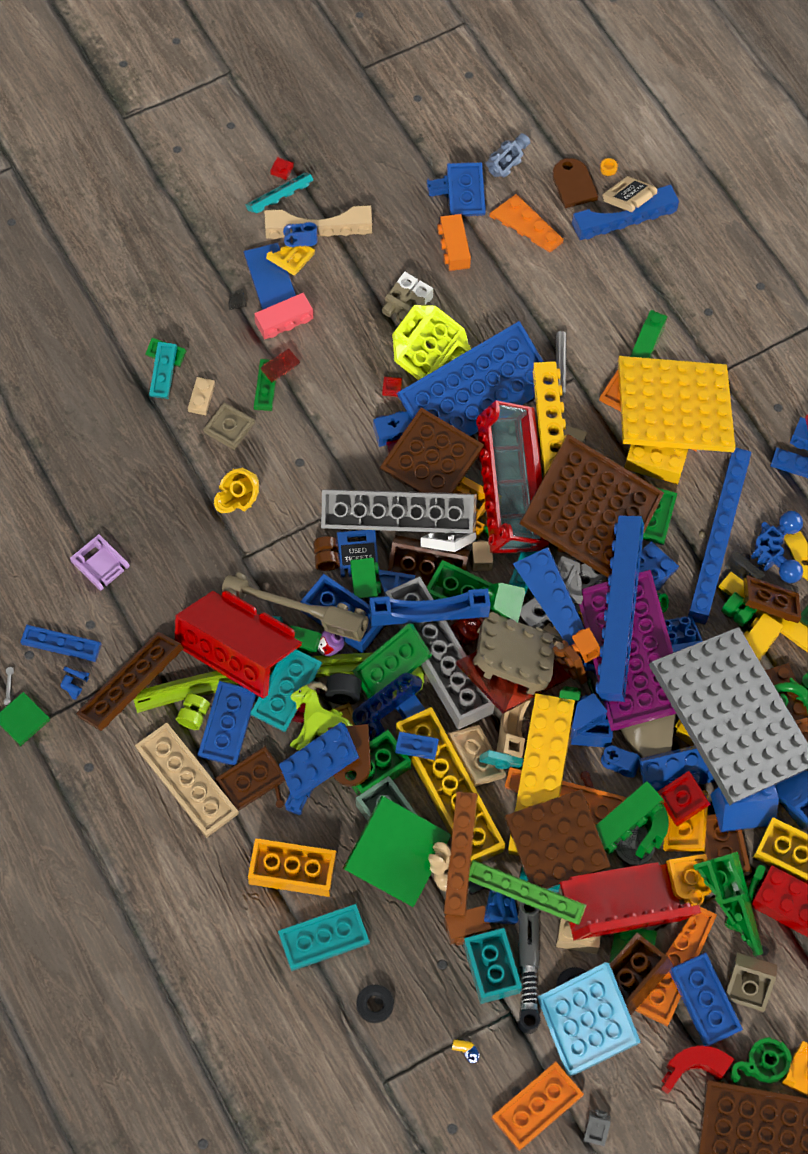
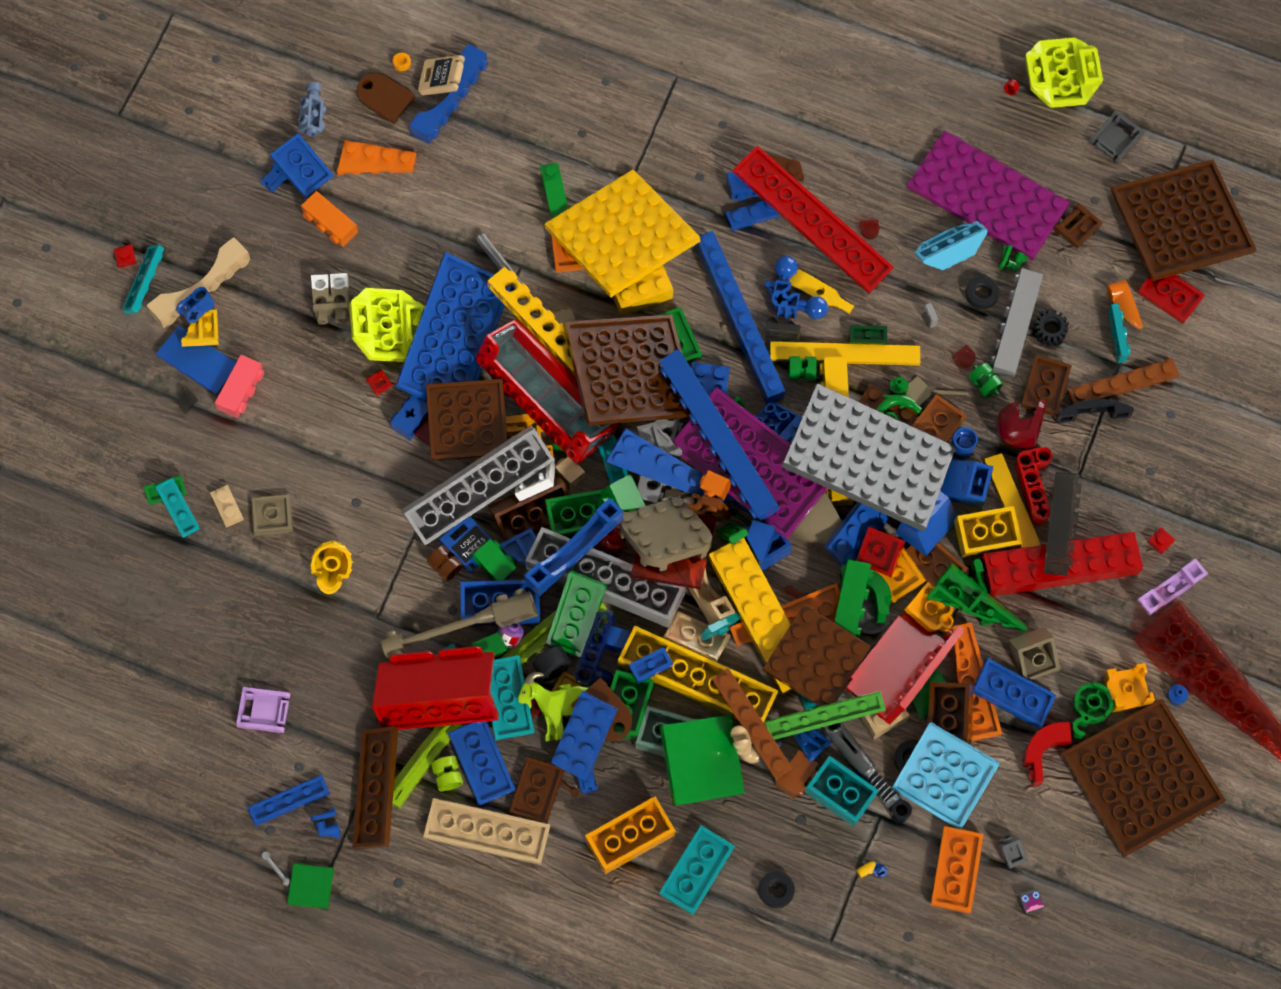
camera: 40 degrees left, 5 degrees up
(264, 390) = (273, 456): green tile -> none
(280, 365) = (272, 431): clear red plate -> none
(623, 761) = (811, 557): blue piece -> none
(772, 599) = (821, 341): reddish brown plate -> none

